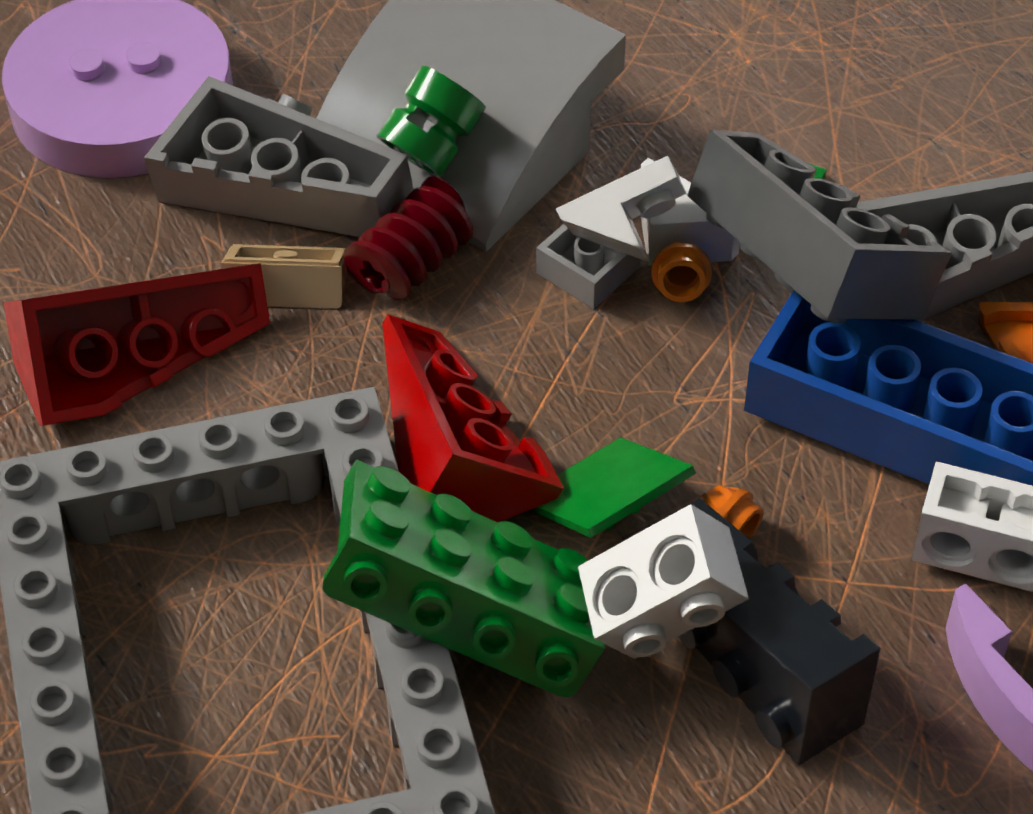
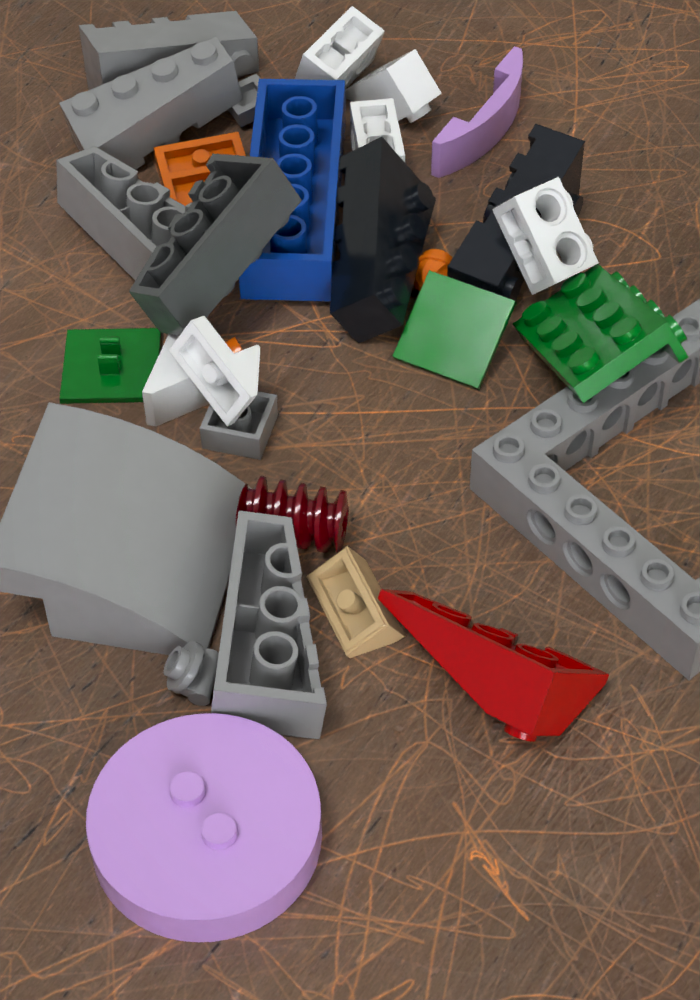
camera: 115 degrees left, 0 degrees up
(443, 103) = (195, 501): green wheel -> none
(453, 434) = (470, 404): red wedge -> none
(801, 456) = (378, 240): none -> black wedge

